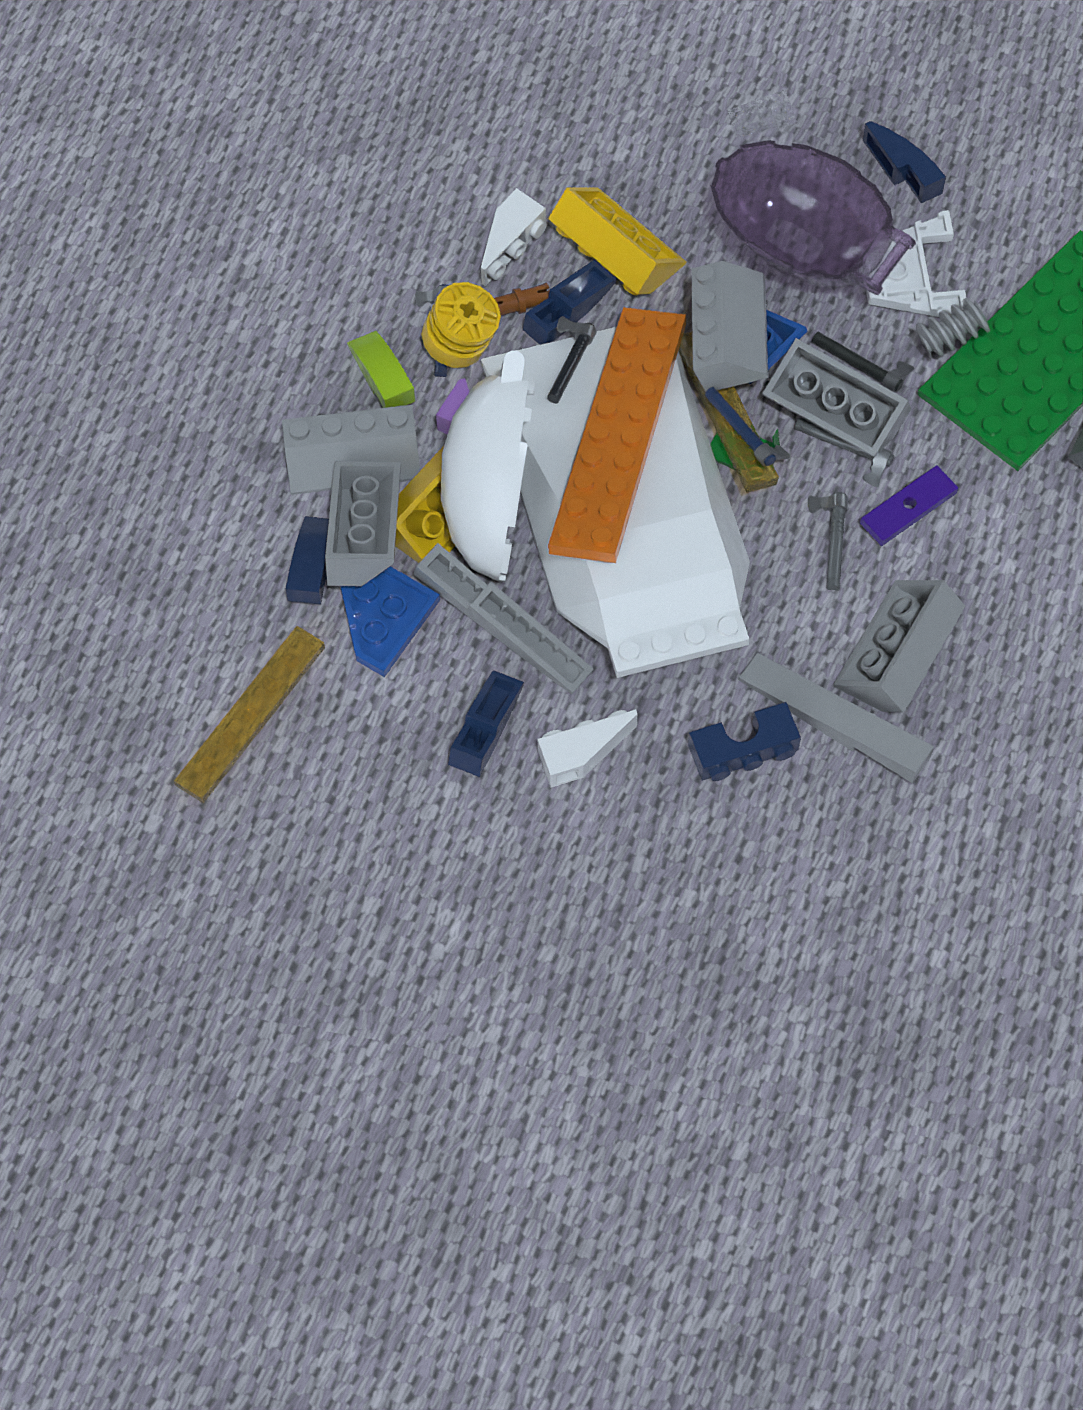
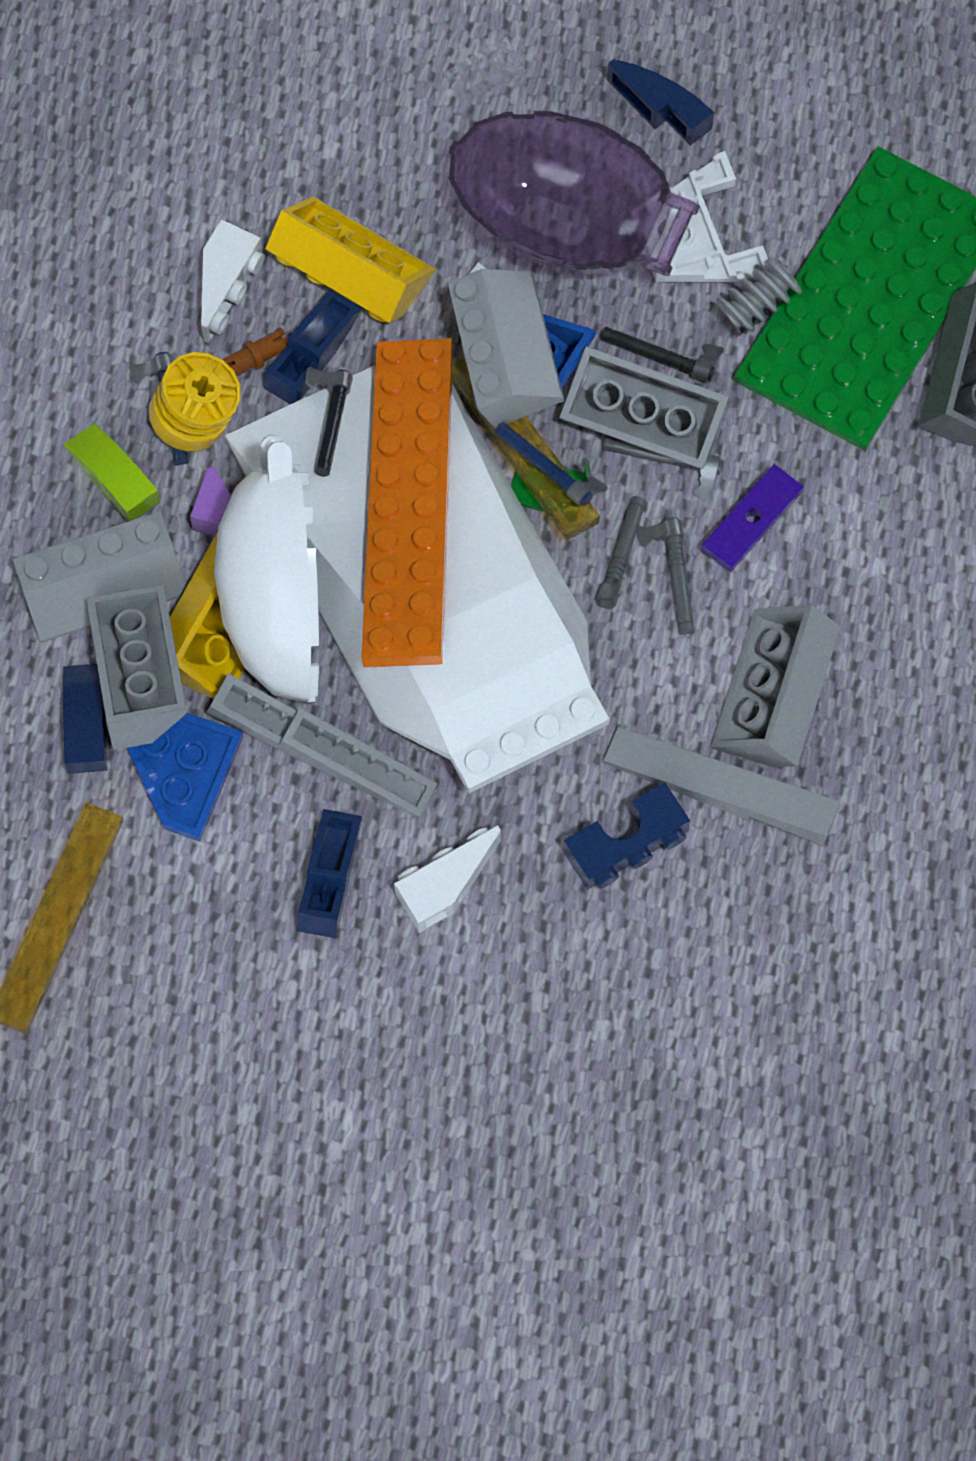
camera: 15 degrees left, 5 degrees up
(775, 541) = (614, 583): none -> dark grey piece

